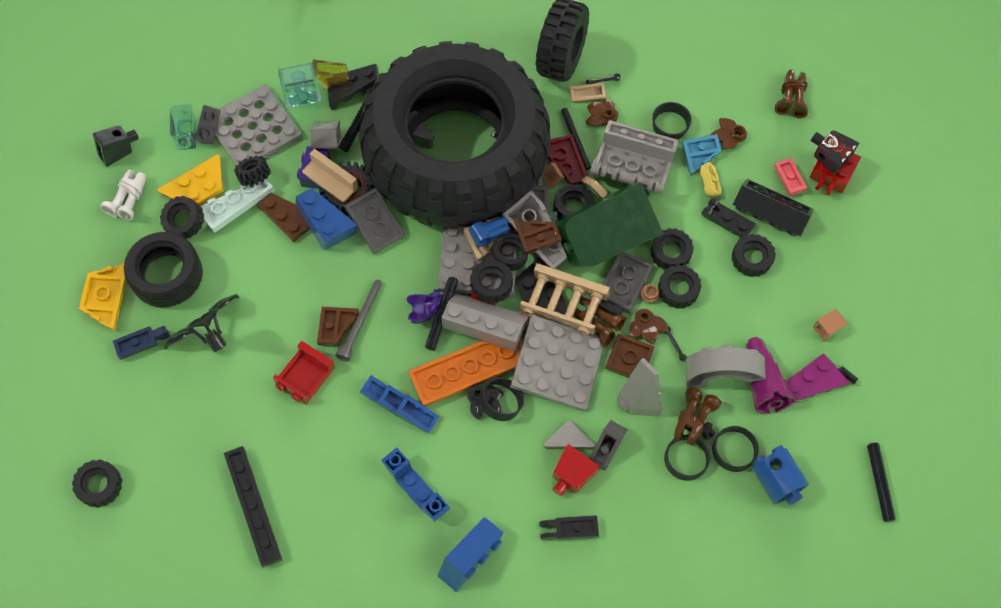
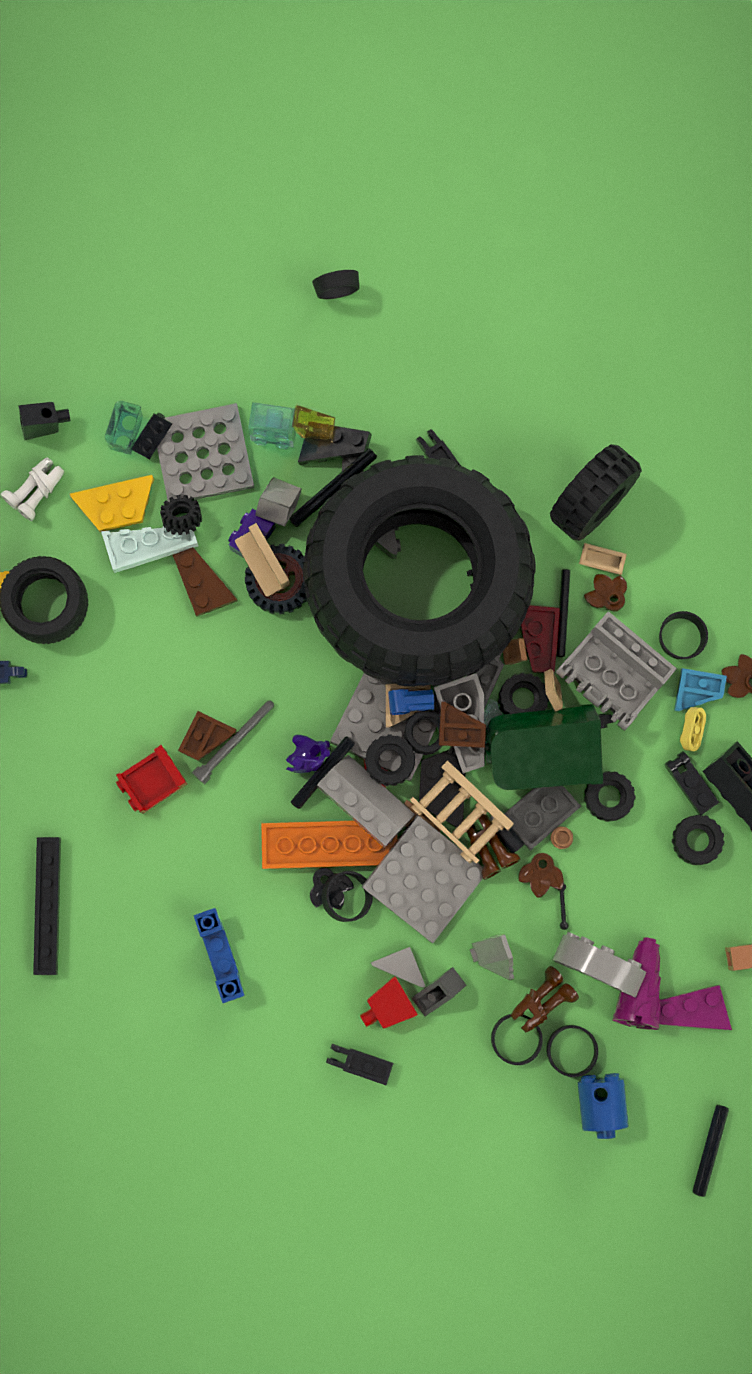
camera: 20 degrees right, 15 degrees up
(173, 207) = (68, 542): black tyre -> none
(213, 337) = (66, 694): black plant -> none
(324, 219) = (237, 608): blue wedge -> none
(374, 220) = (293, 631): dark grey tile -> none
(399, 404) = (238, 856): blue slope -> none
(470, 553) = (248, 1050): blue wedge -> none
(616, 77) = (646, 550): black hinge -> none
(627, 354) = (506, 902): reddish brown tile -> none
(686, 274) = (597, 826): black tyre -> none
(708, 431) = (552, 1018): black piece -> none
(848, 375) = (734, 1018): black piece -> none

